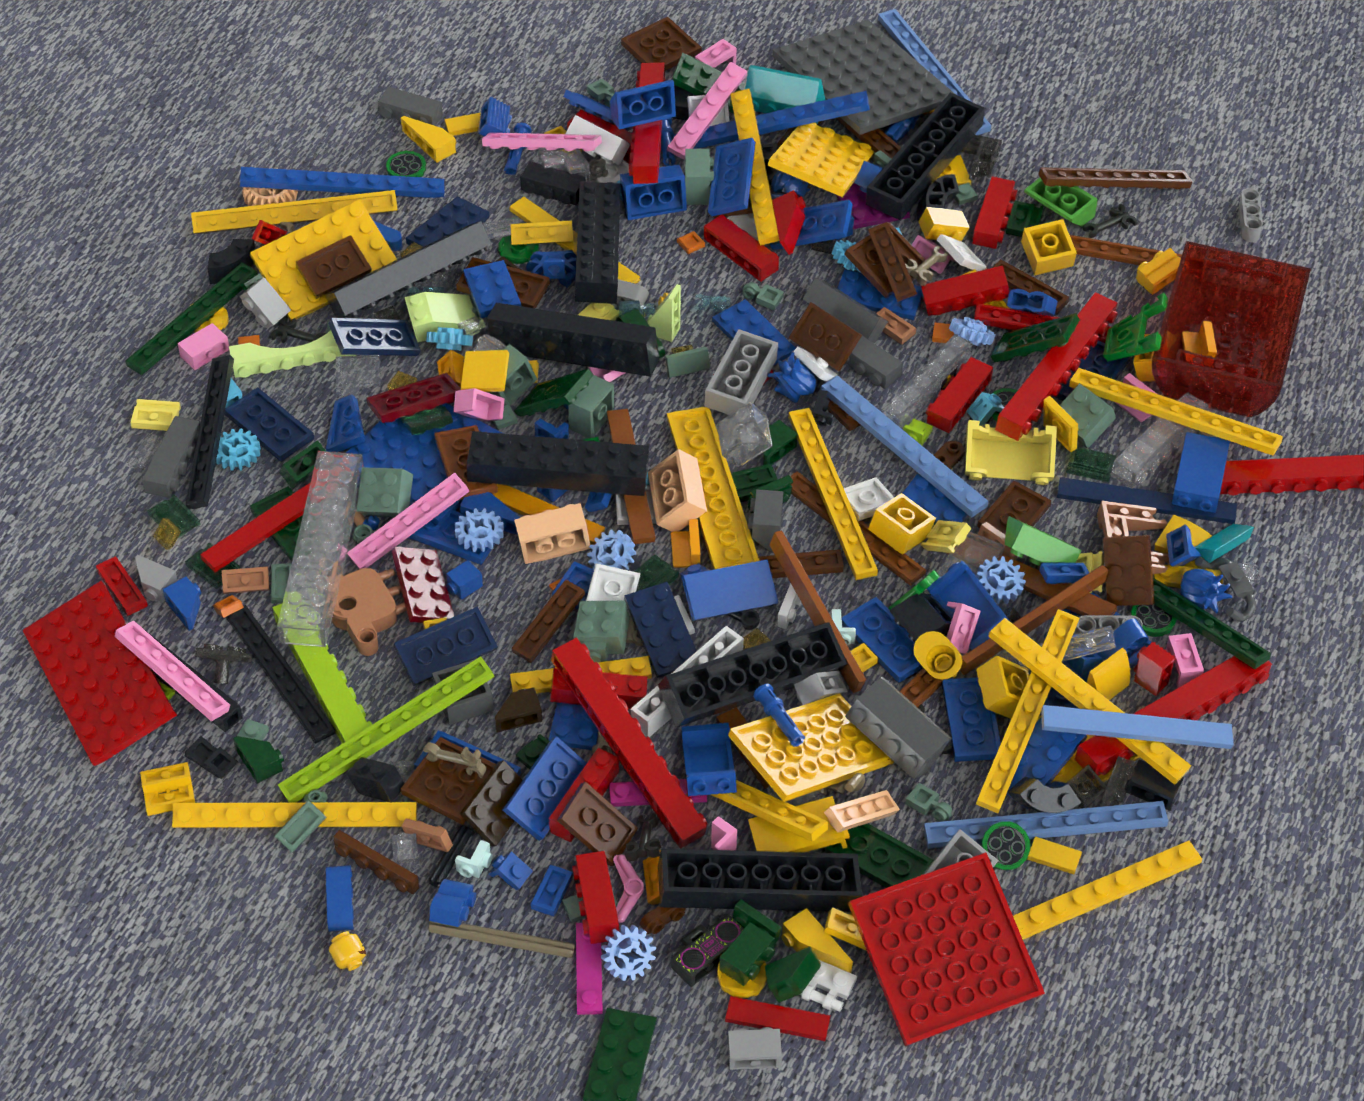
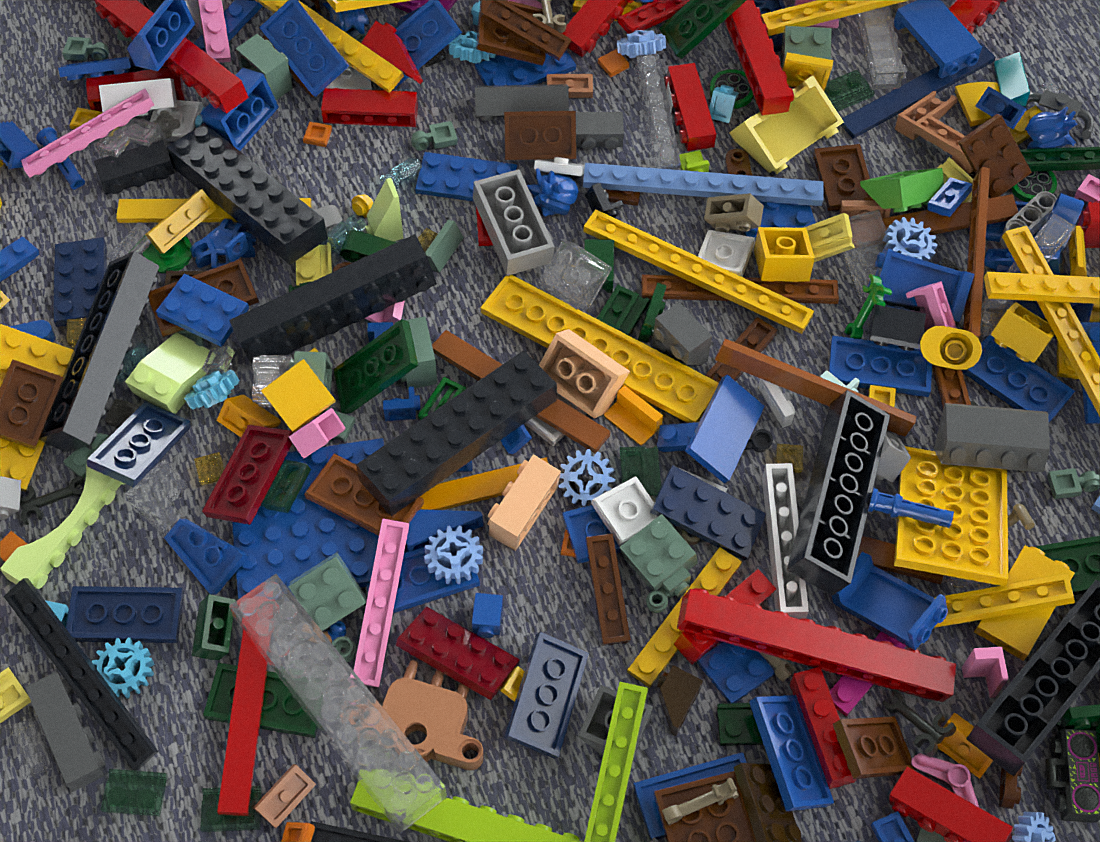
camera: 45 degrees left, 10 degrees up
(166, 533) = (150, 817): clear yellow tile -> none
(279, 580) = (319, 766): sand green tile -> none
(861, 811) = (1055, 538): light nougat plate -> none
(898, 474) = (733, 212): none -> dark tan brick

